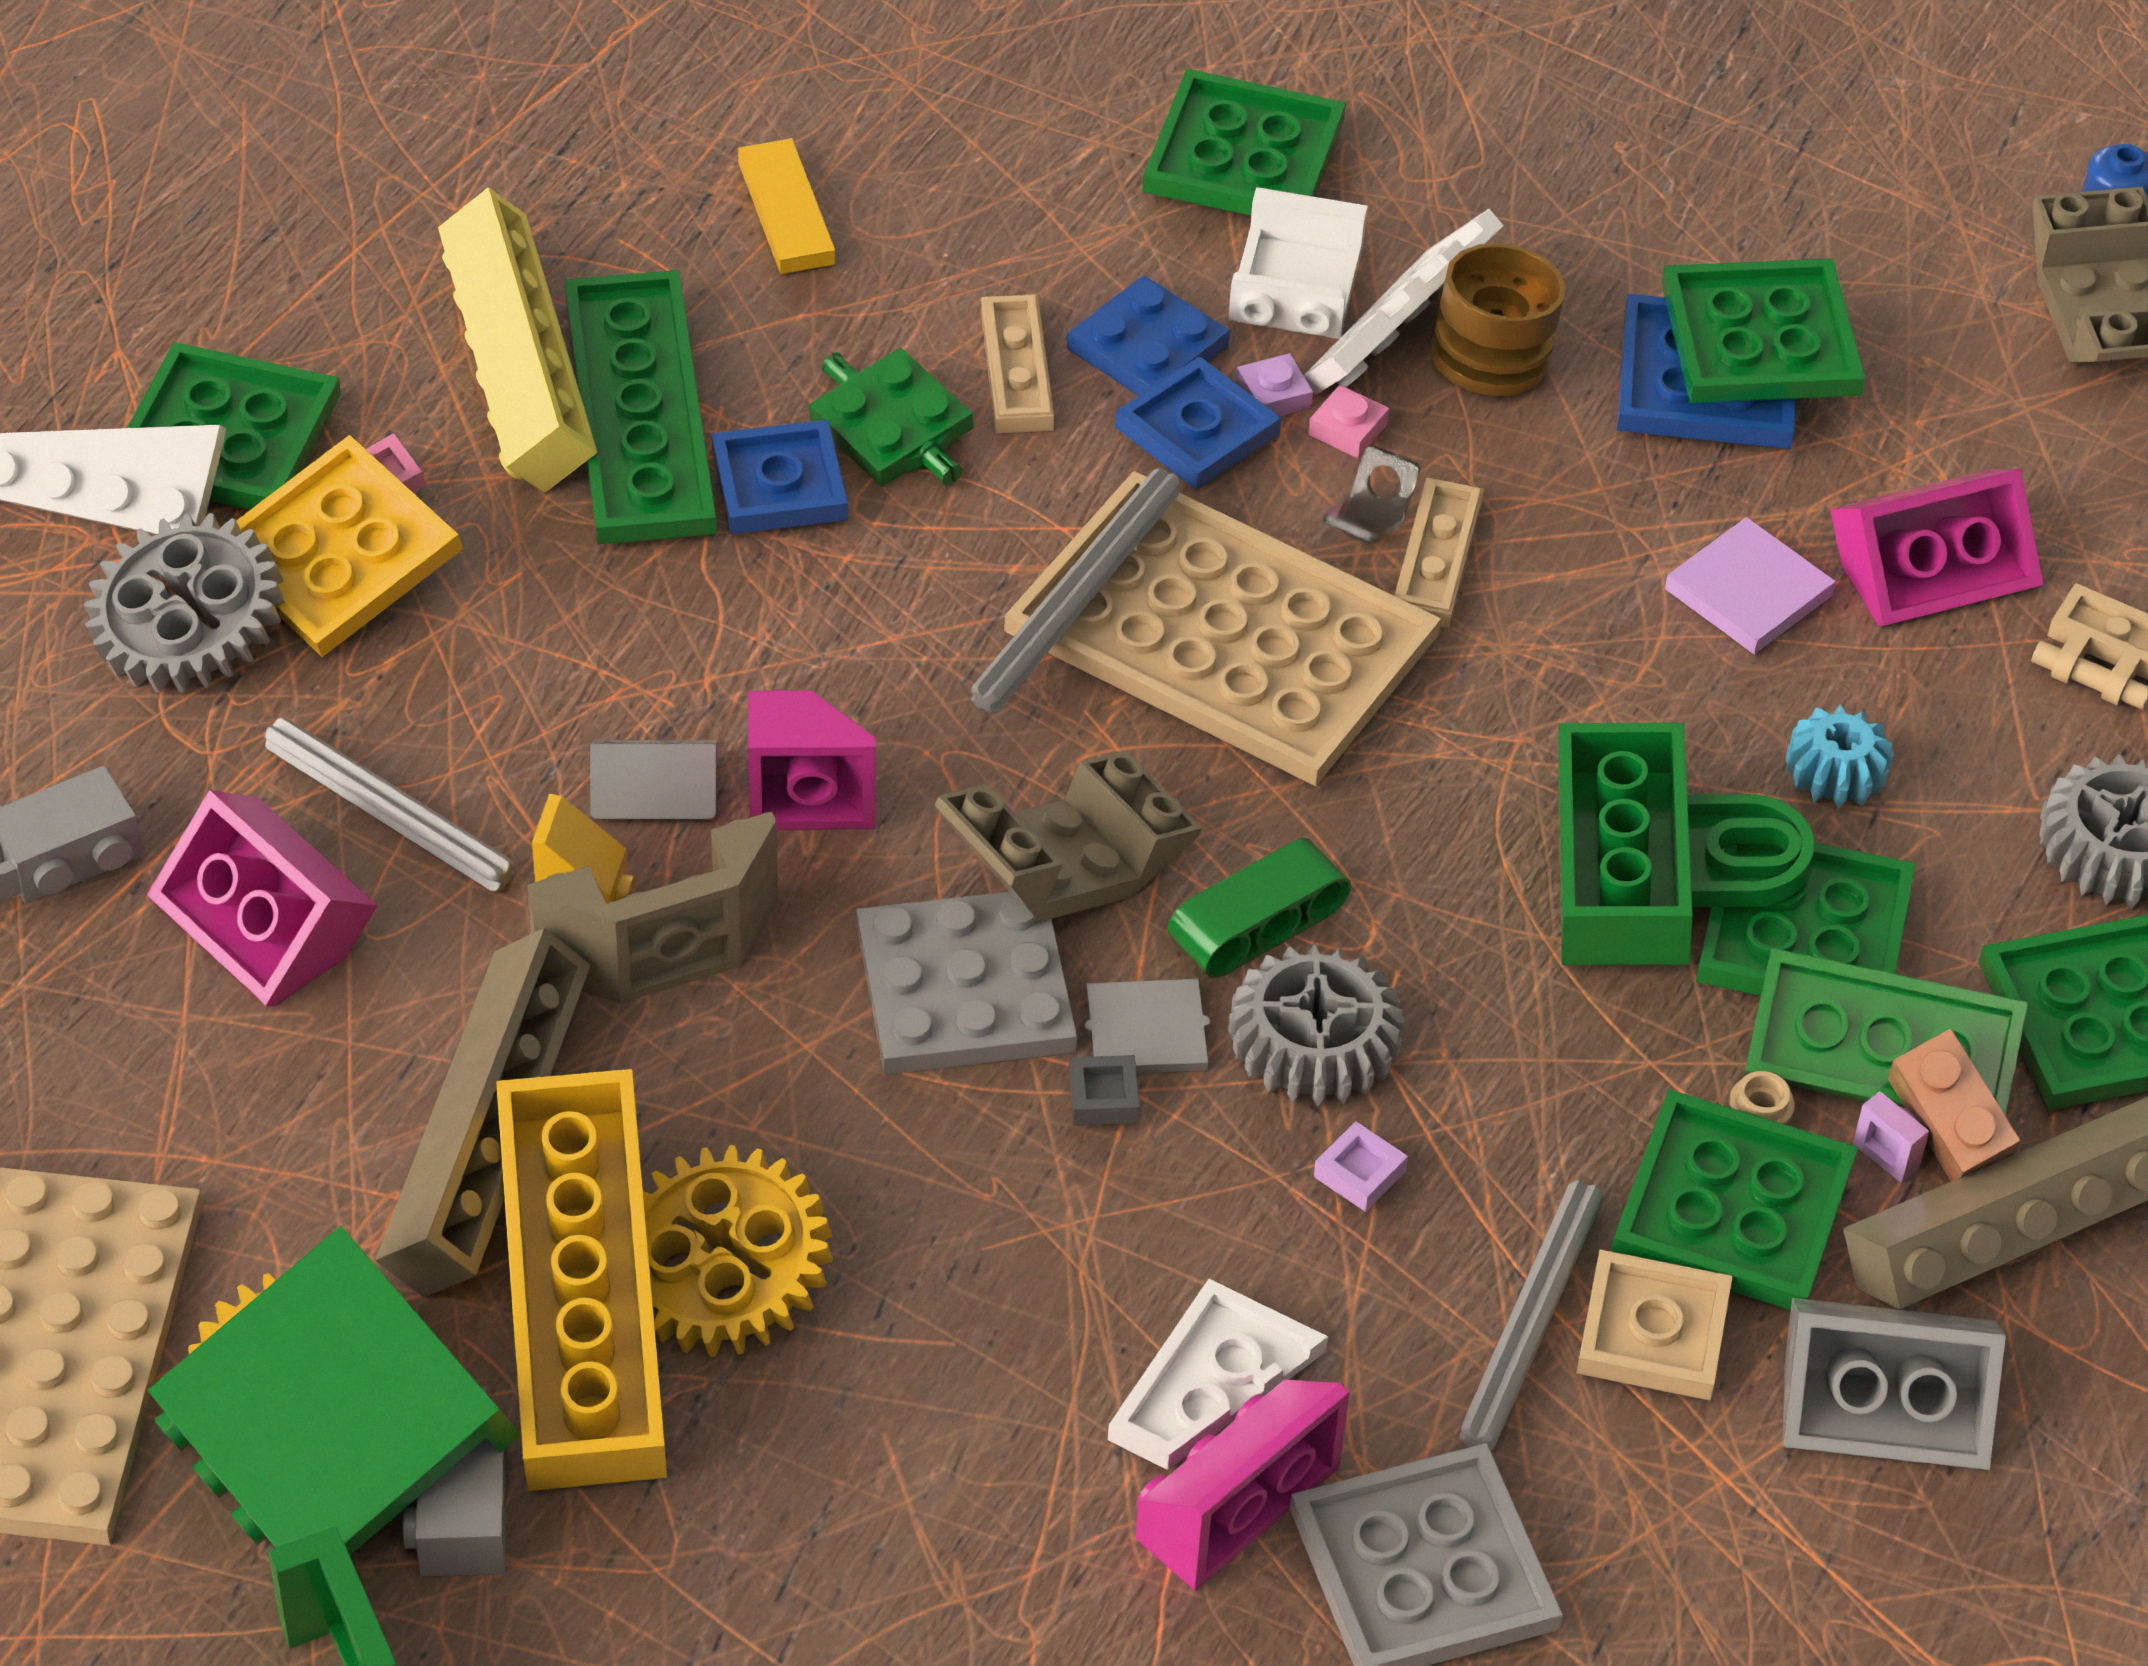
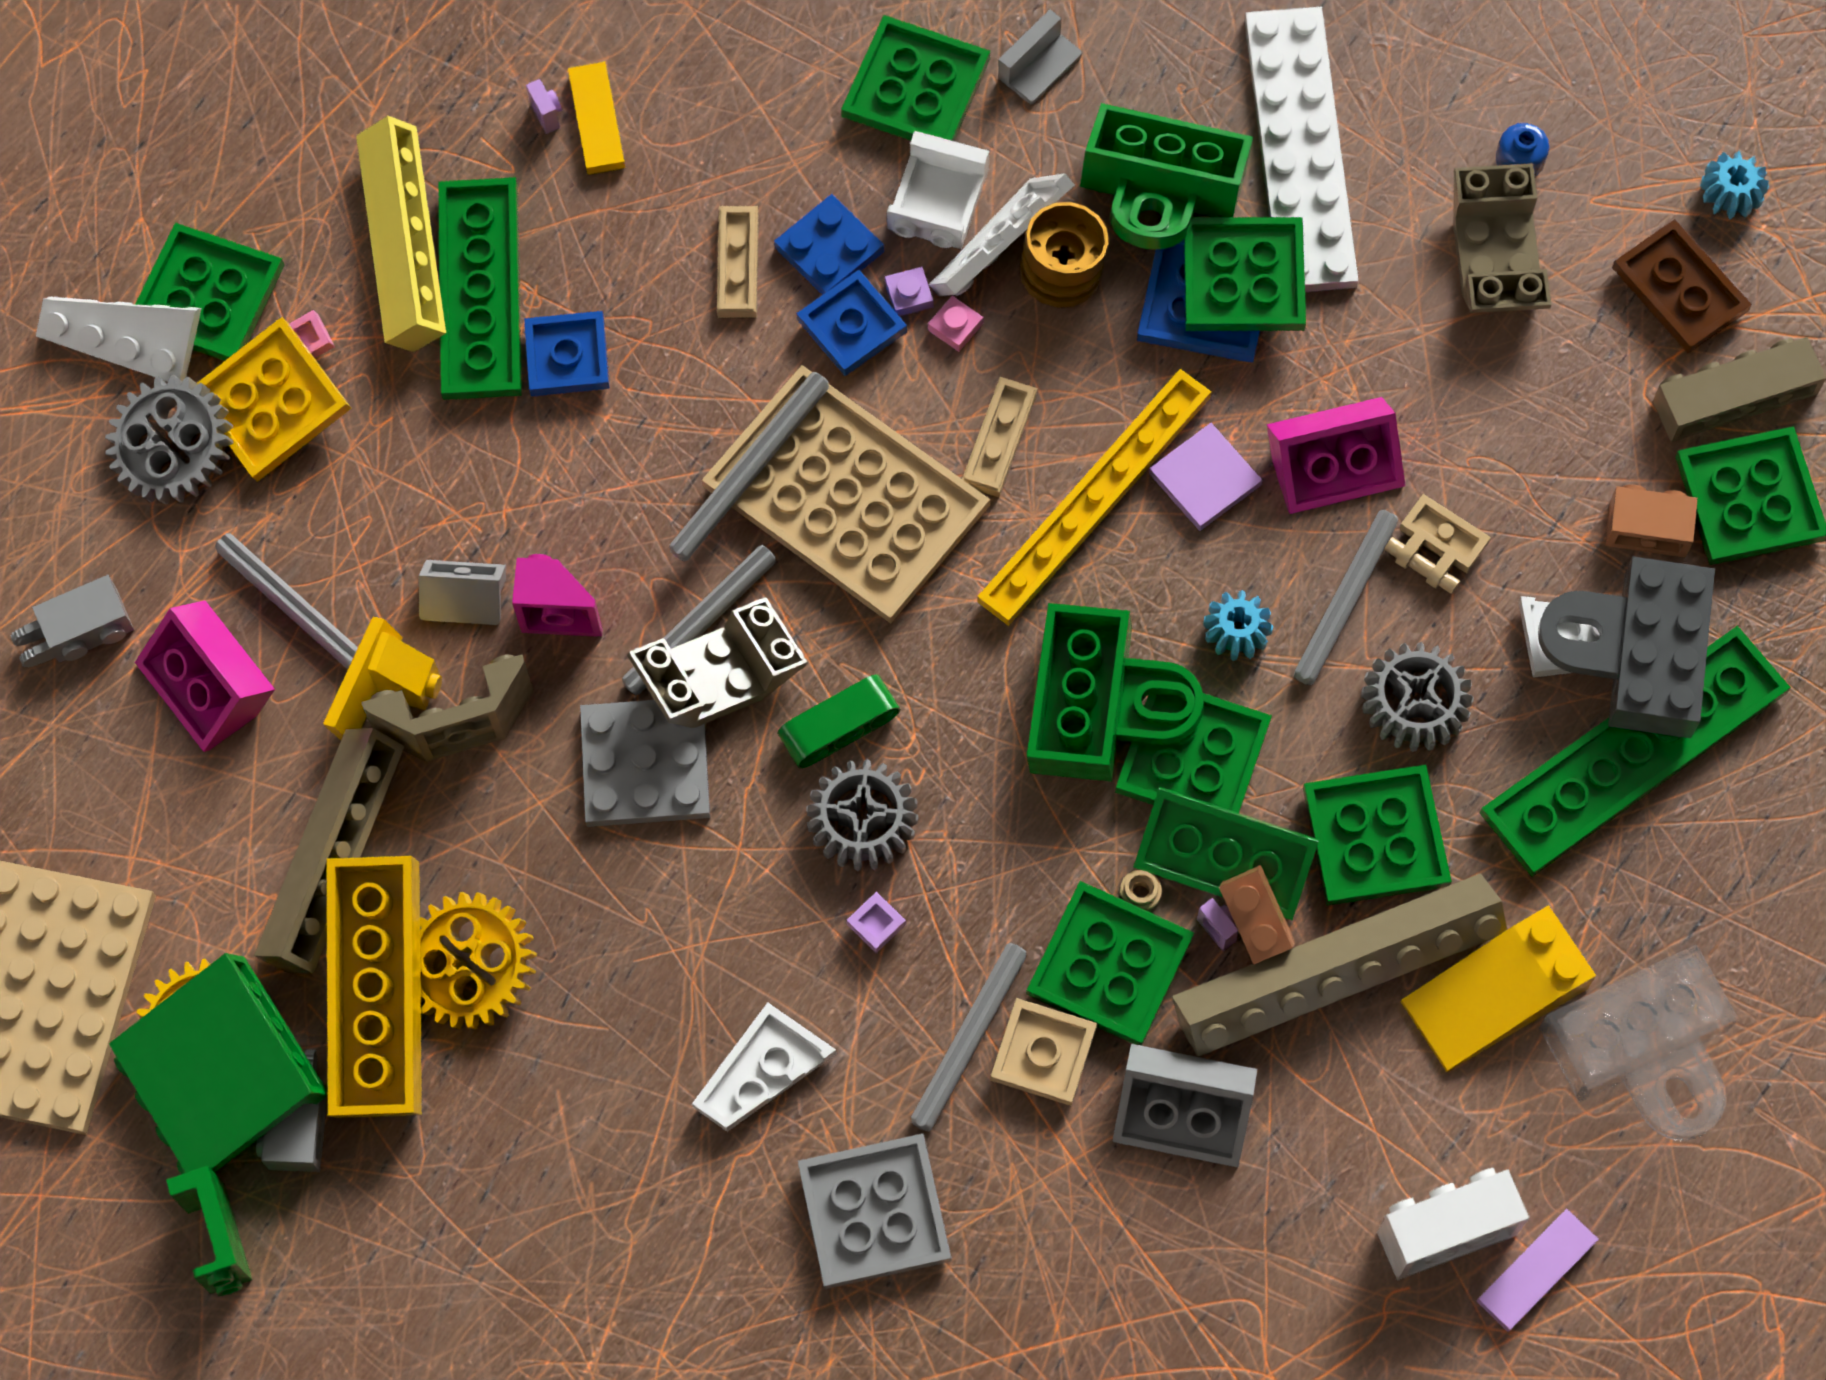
camera: 10 degrees right, 20 degrees up
(503, 905) = (357, 684): none -> yellow tile
(709, 189) = (544, 105): none -> lavender plate
(892, 417) = (647, 305): green plate -> none
(1030, 787) = (712, 607): none -> light grey axle
(1104, 1090) = (721, 854): dark grey plate -> none
(1151, 1020) = (757, 802): light grey piece -> none
(1243, 1478) = (767, 1147): dark pink slope -> none
(1365, 513) = (956, 404): clear smoke bracket -> none
(1410, 114) = (1038, 59): none -> light grey panel
(1590, 616) = (1093, 497): none -> yellow plate
(1622, 209) = (1164, 169): none -> green brick
(1803, 185) = (1302, 139): none -> white plate
(1988, 721) = (1345, 597): none -> light grey axle

